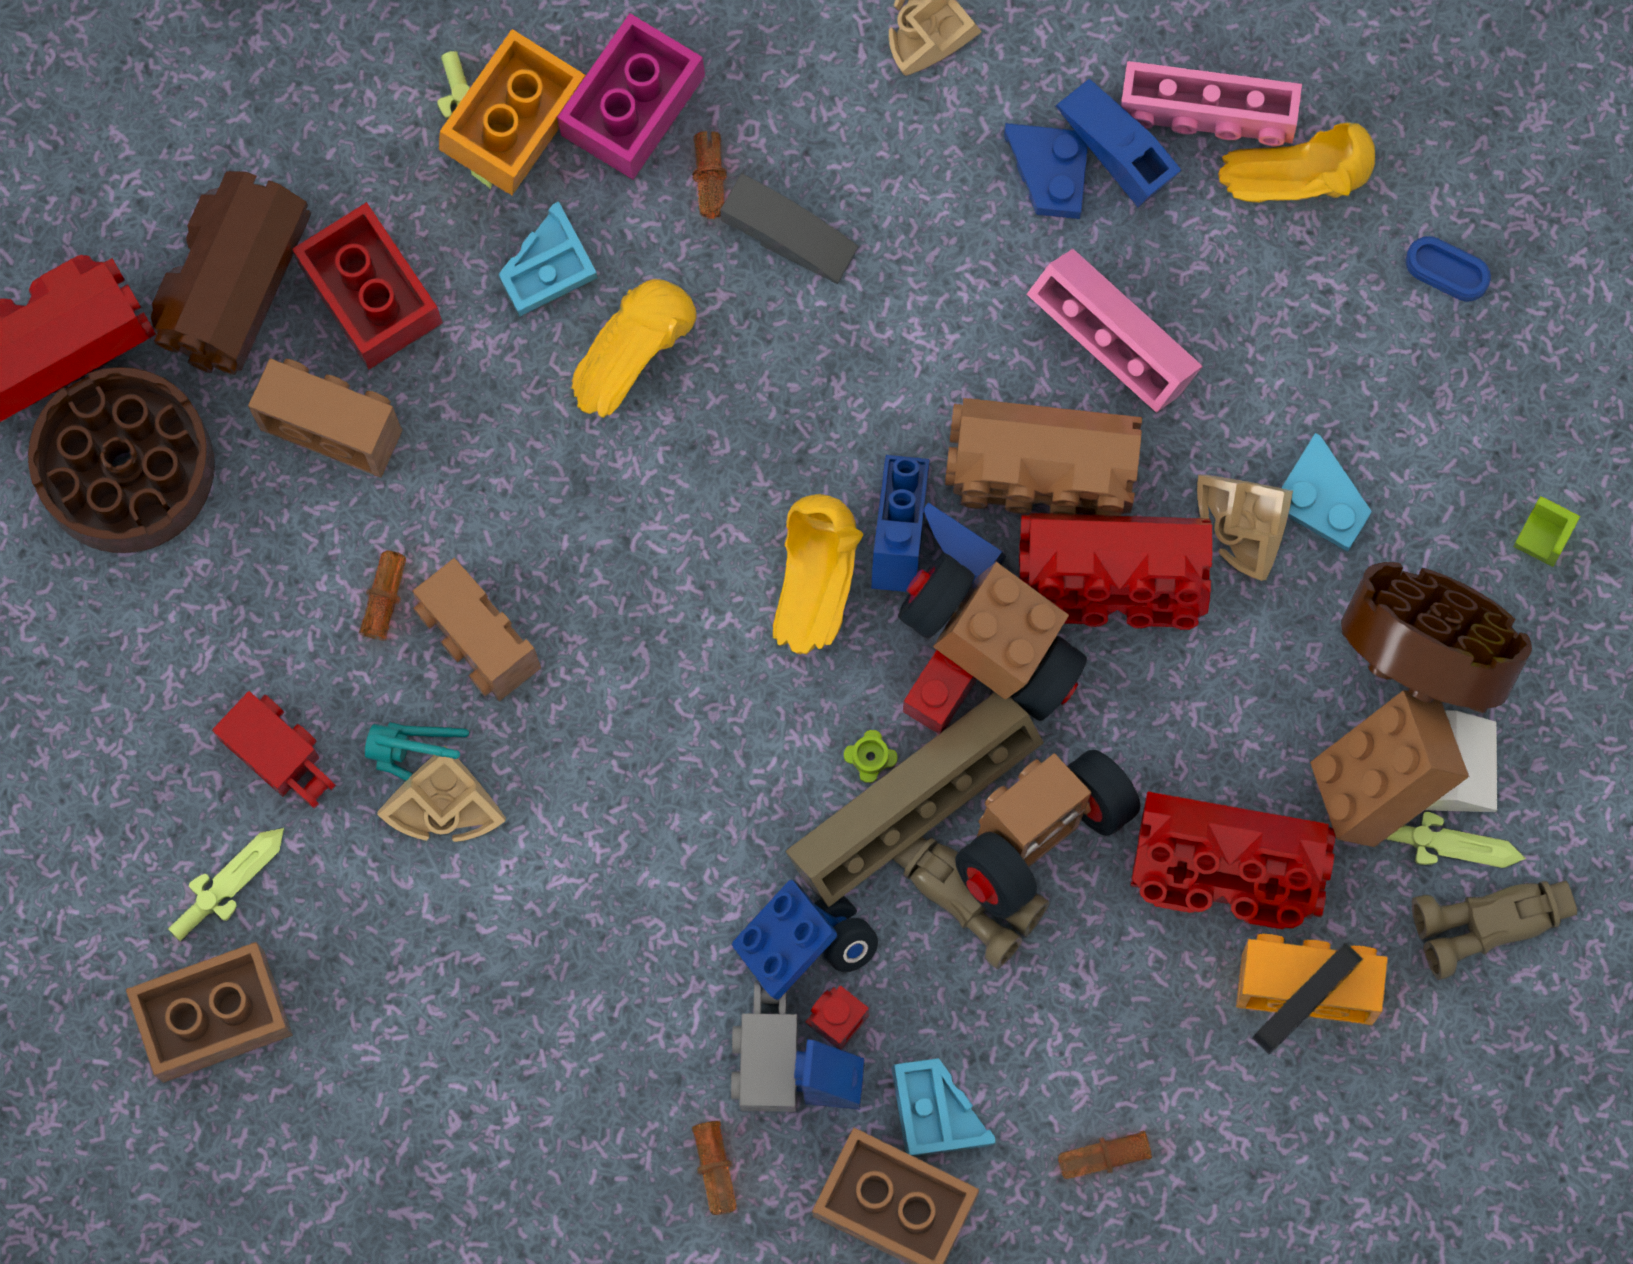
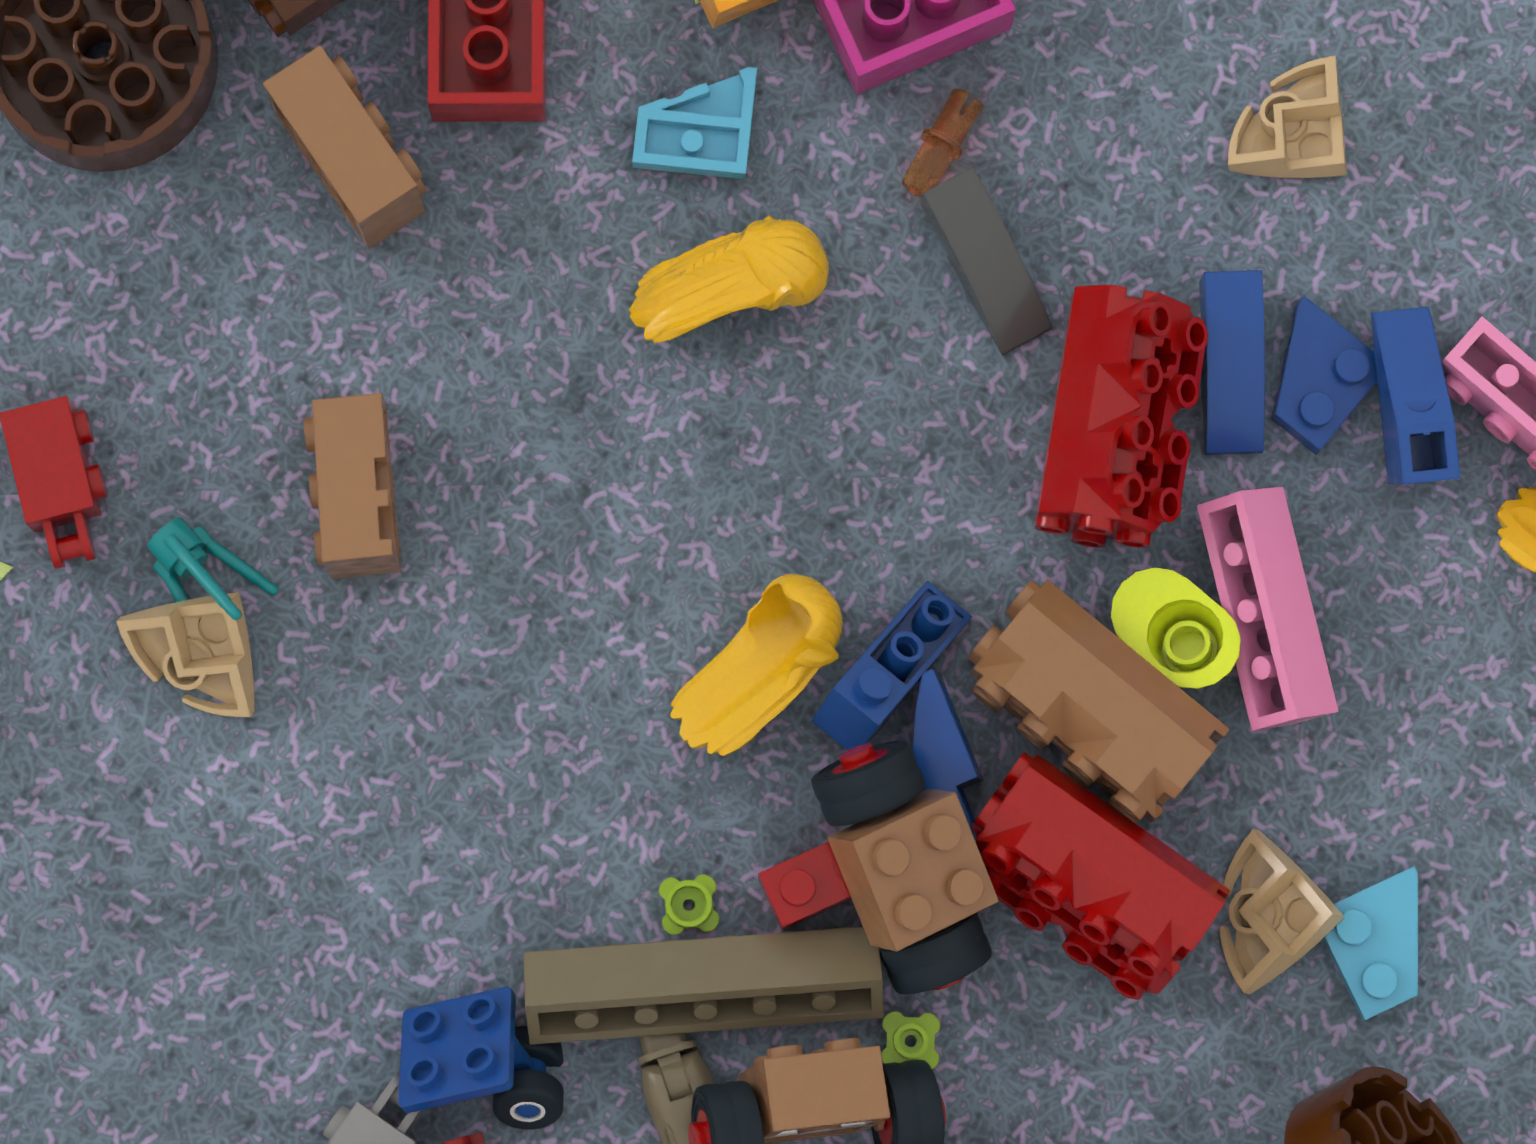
camera: 25 degrees right, 5 degrees up
(383, 595) = (283, 382): clear orange axle -> none
(944, 286) = (1111, 443): none -> red brick
(988, 192) = (1233, 362): none -> blue slope
(1065, 377) = (1176, 627): none -> neon yellow piece
(1072, 736) = (900, 1027): none -> lime plate

